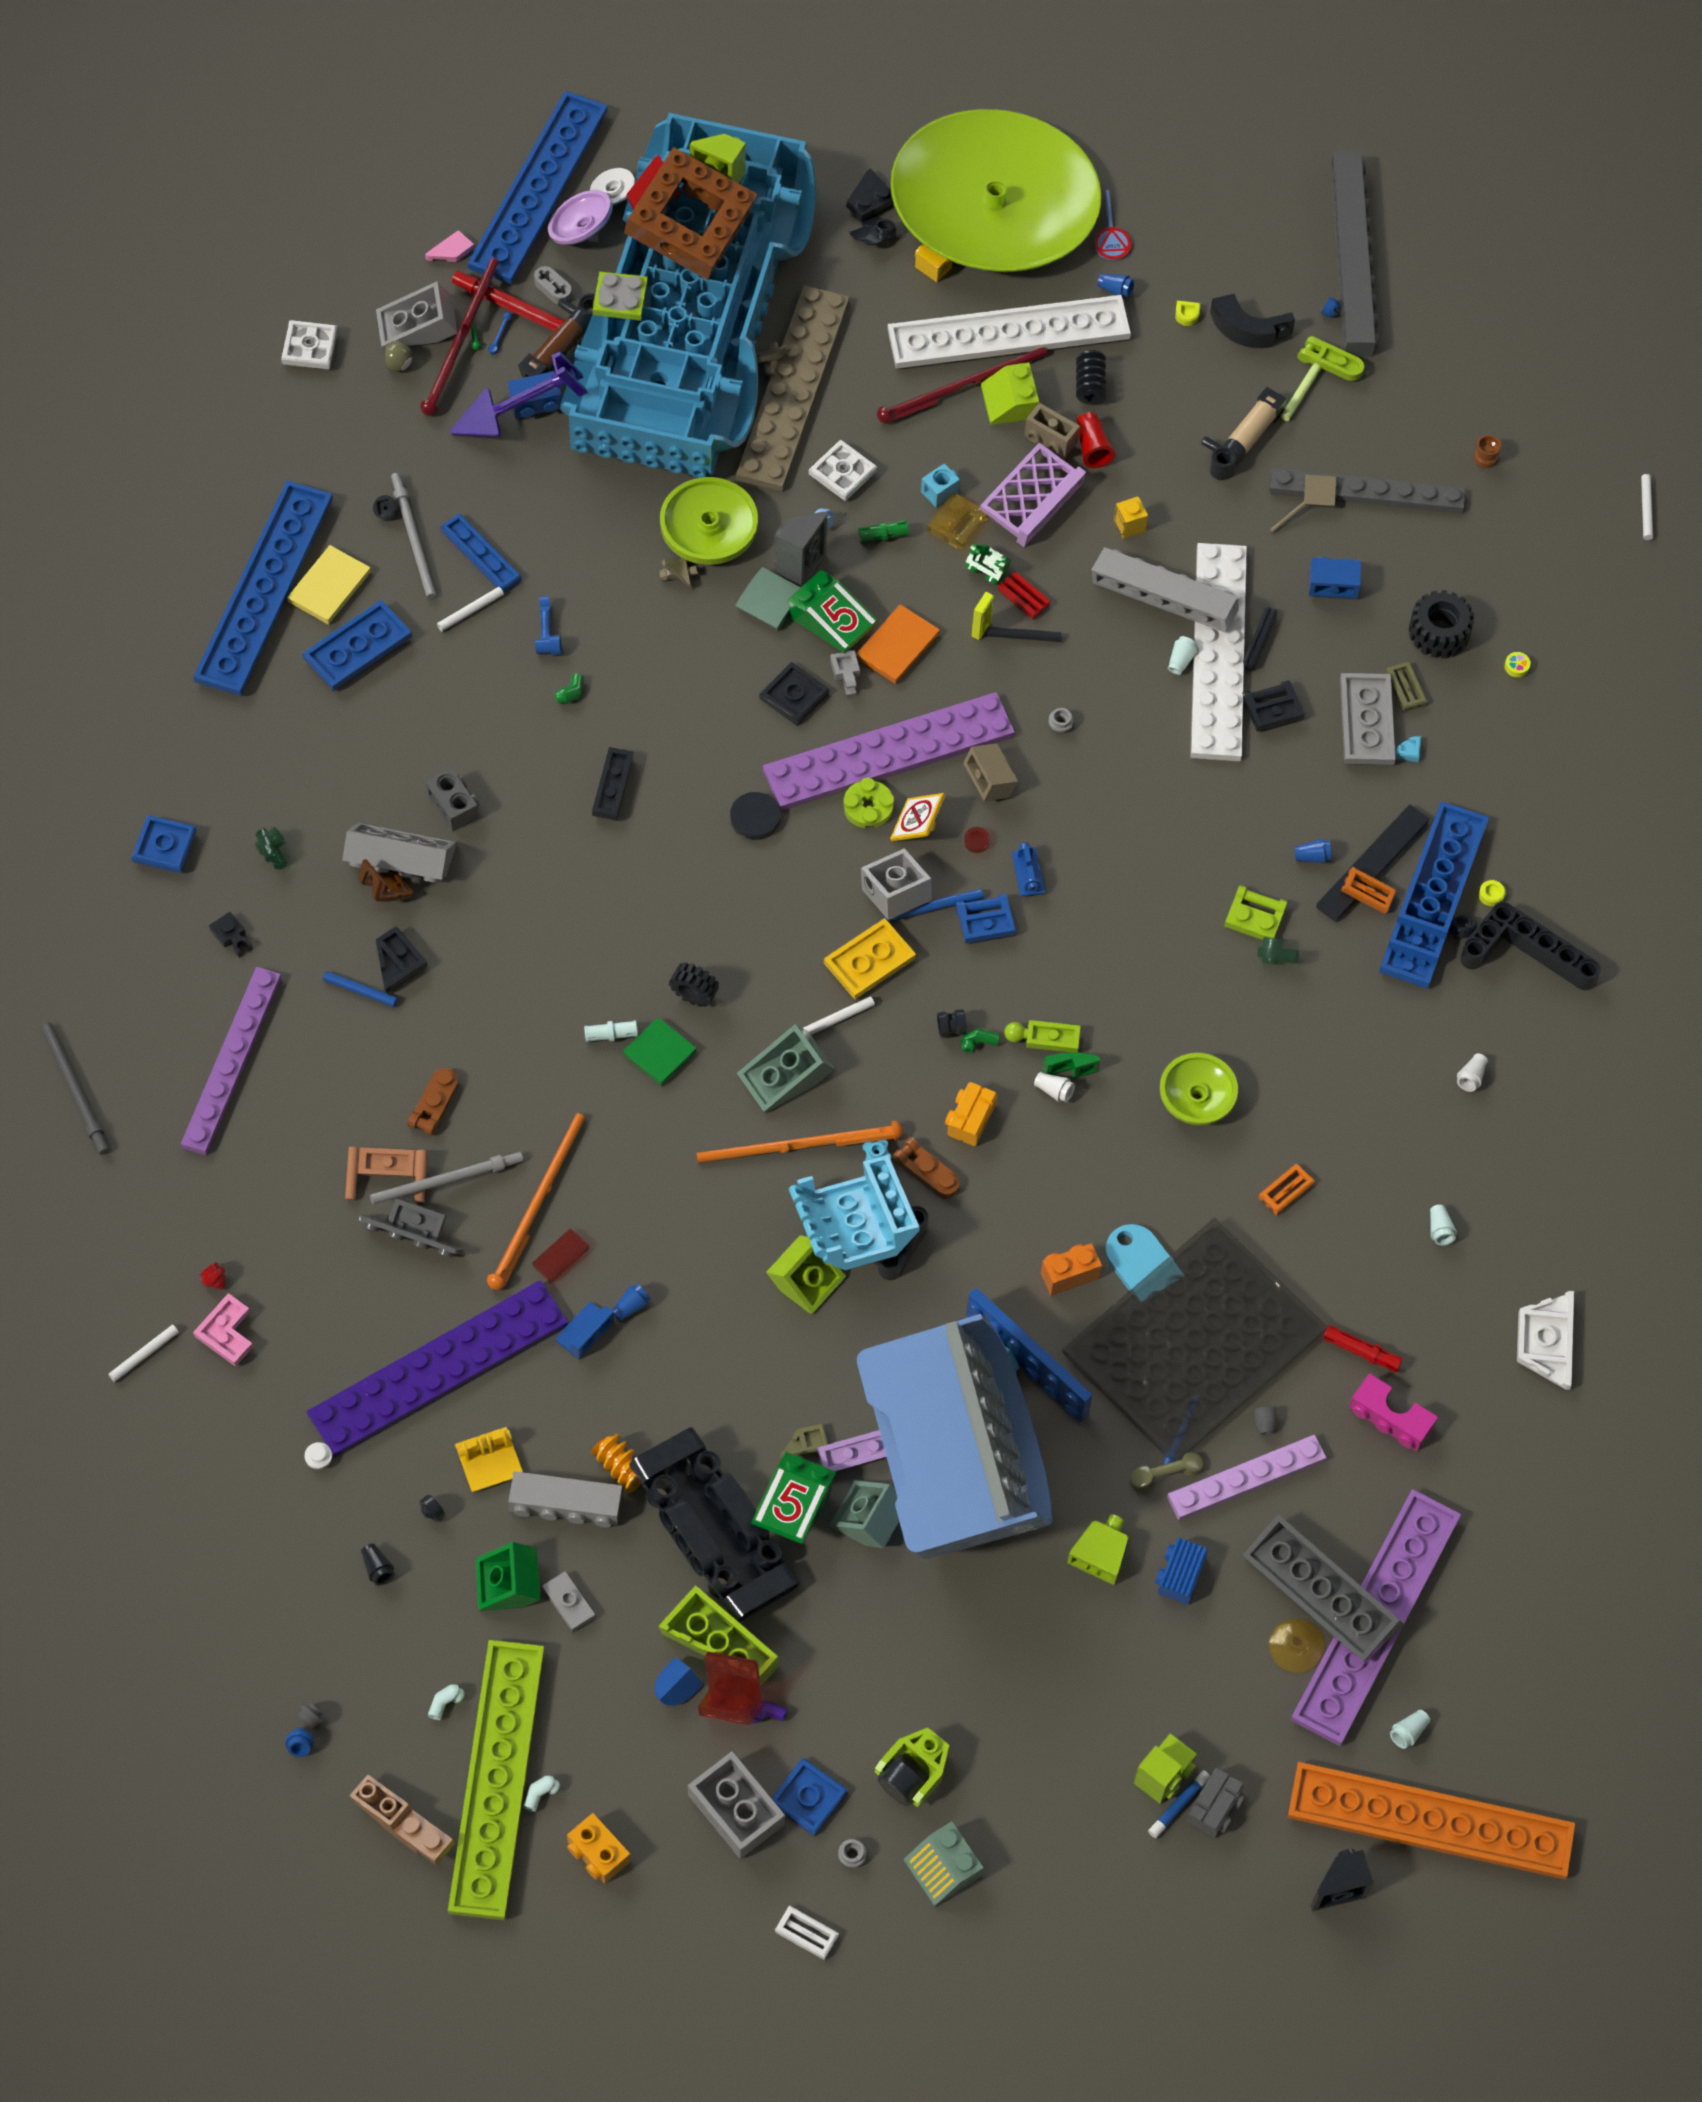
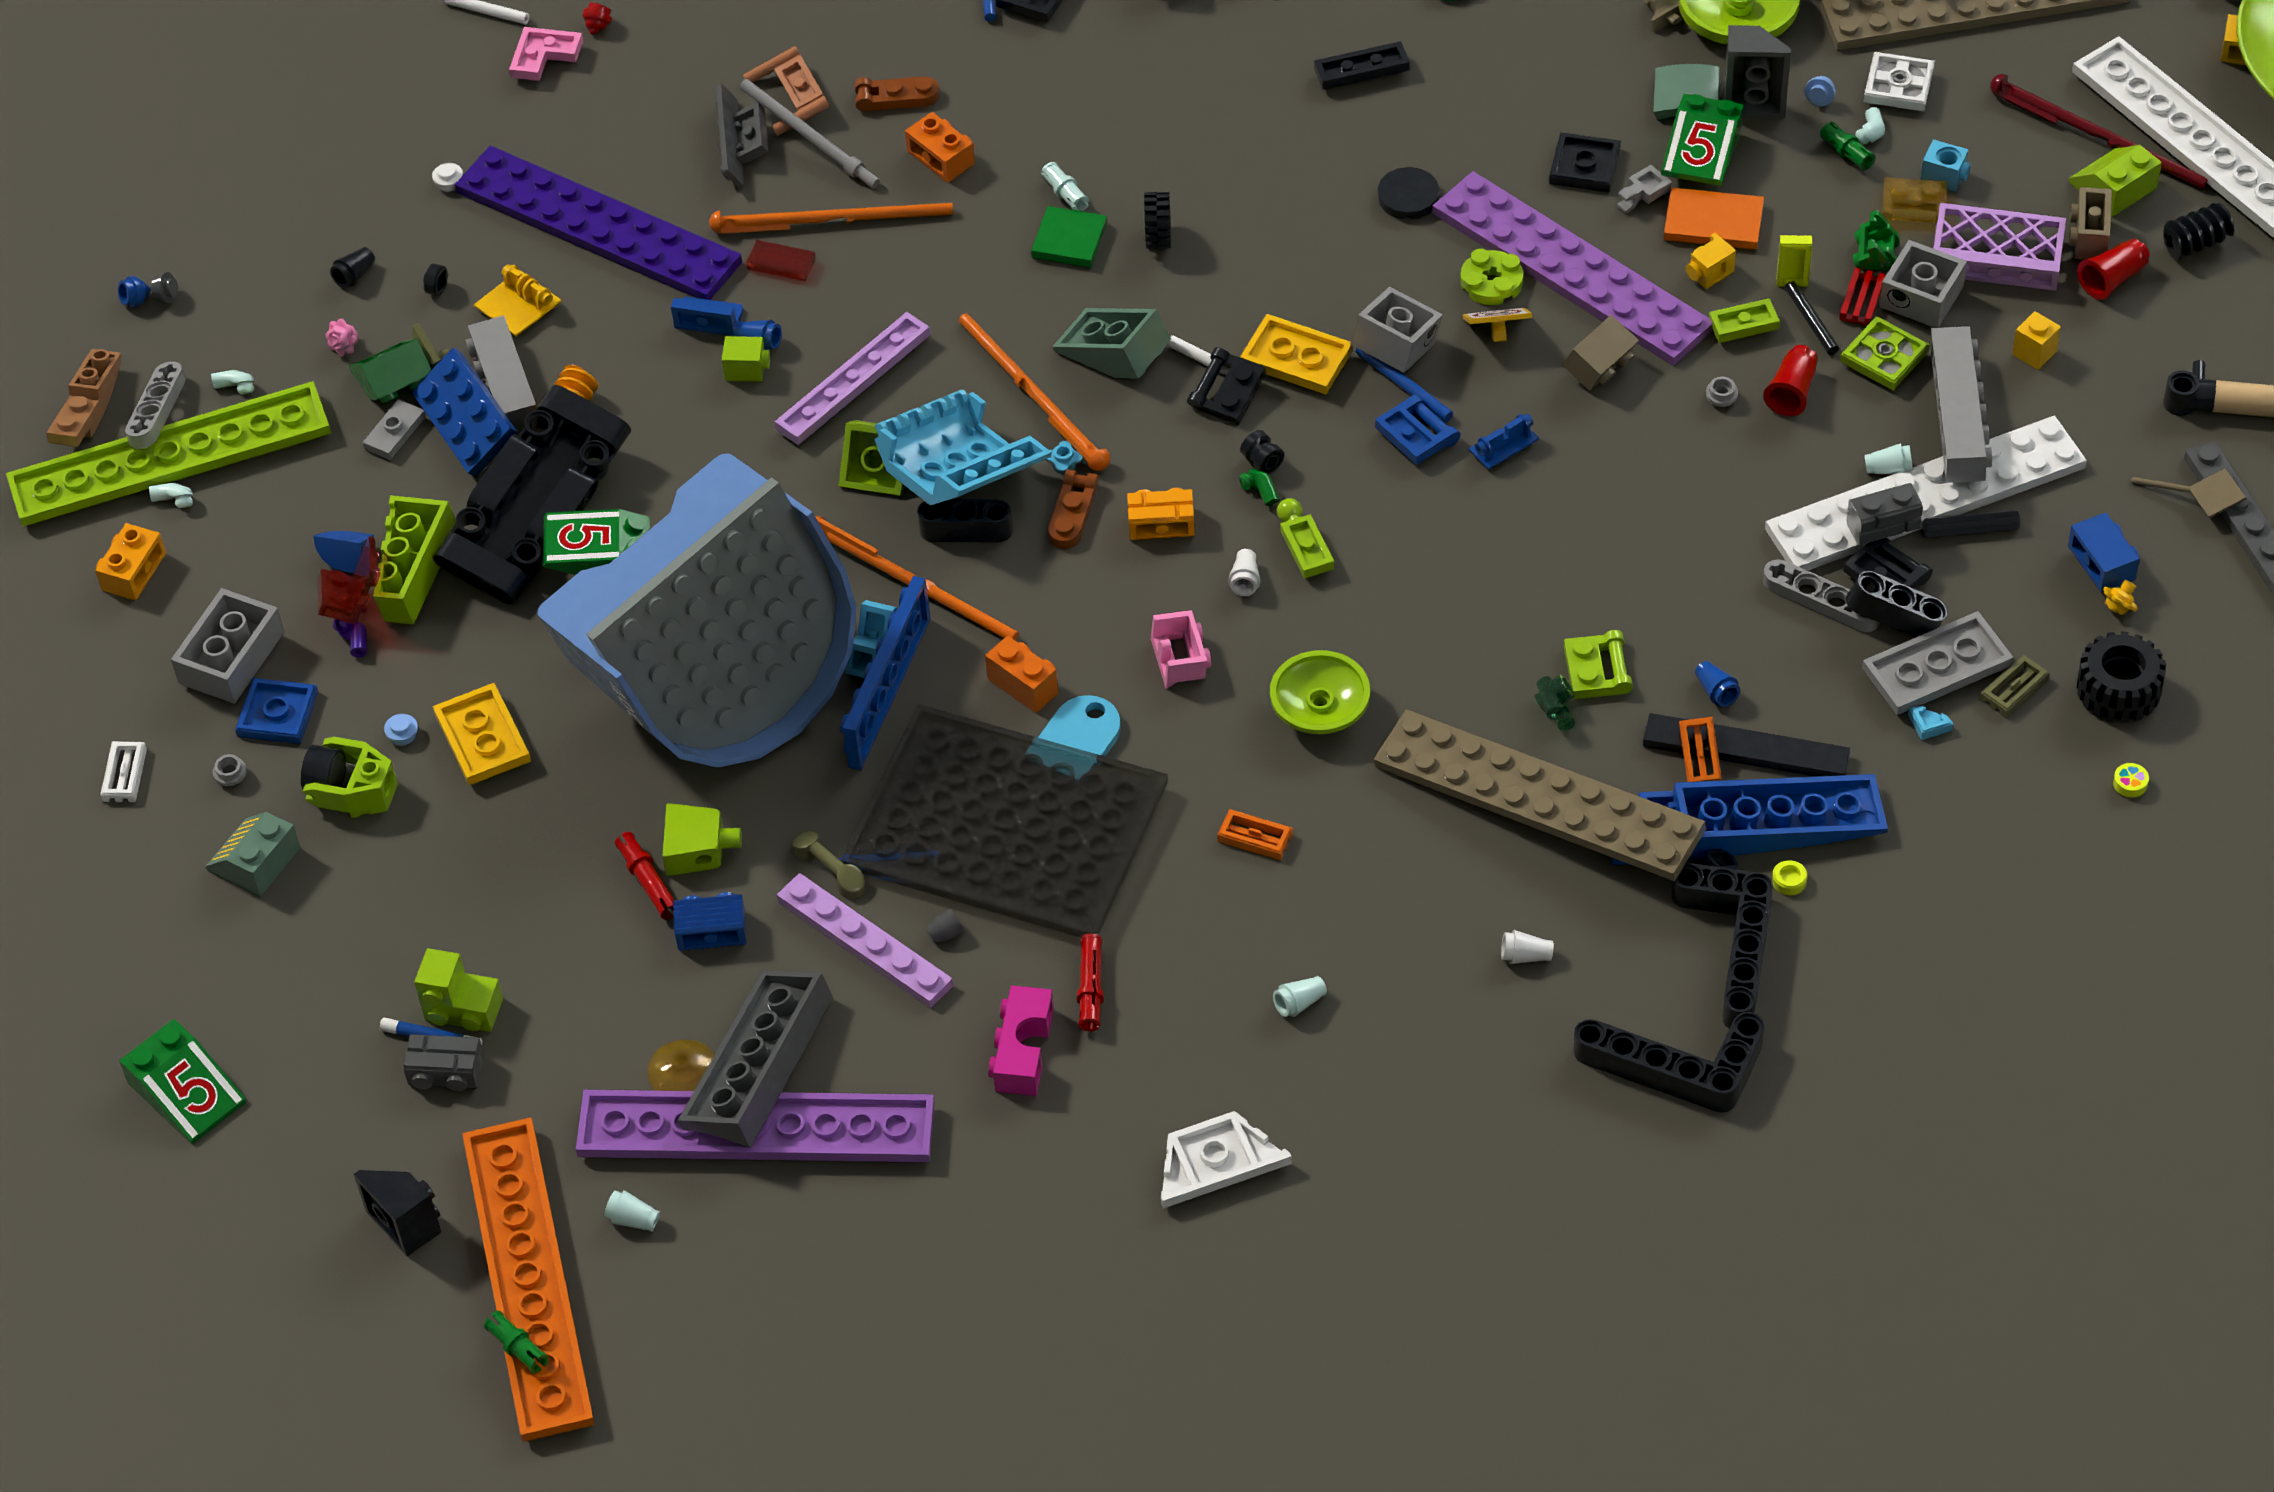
camera: 70 degrees right, 10 degrees down
(442, 1769) = (165, 380): none -> light grey beam
(451, 1601) = (341, 337): none -> bright pink plant
(517, 1095) = (940, 147): none -> orange brick
(518, 1537) = (431, 355): none -> olive piece
(592, 1541) = (464, 412): none -> blue plate
(653, 1322) = (744, 358): none -> lime brick
(716, 1257) = (852, 378): none -> lavender plate
(849, 1344) = (869, 555): none -> orange bar
(875, 506) = (1873, 129): none -> light aqua arm
(879, 1713) = (401, 729): none -> light blue plate
(881, 1012) = (1235, 391): none -> black plate
(918, 1657) = (481, 734): none -> yellow plate
(942, 664) = (1711, 262): none -> yellow brick
(976, 839) = (1514, 385): clear red tile -> none
(1006, 673) = (1744, 320): none -> lime plate
(1045, 553) = (1923, 284): none -> light grey brick
(1079, 1064) = (1284, 579): green slope -> none
(1081, 673) = (1791, 384): none -> red plant
(1085, 608) = (1885, 353): none -> lime piece
(1103, 1597) = (640, 864): none -> red pin
(1105, 1149) = (1179, 626): none -> bright pink window
(1139, 1995) = (181, 1081): none -> green slope
(1241, 680) = (1884, 514): none -> dark grey brick
(1268, 750) = (1817, 600): none -> light grey beam
(1316, 715) = (1895, 604): none -> black beam
(1357, 1001) = (1540, 794): none -> dark tan plate
(1373, 591) = (2120, 598): none -> yellow plant
(1494, 1847) = (516, 1341): none -> green pin
(1613, 1033) = (1674, 1063): none -> black beam

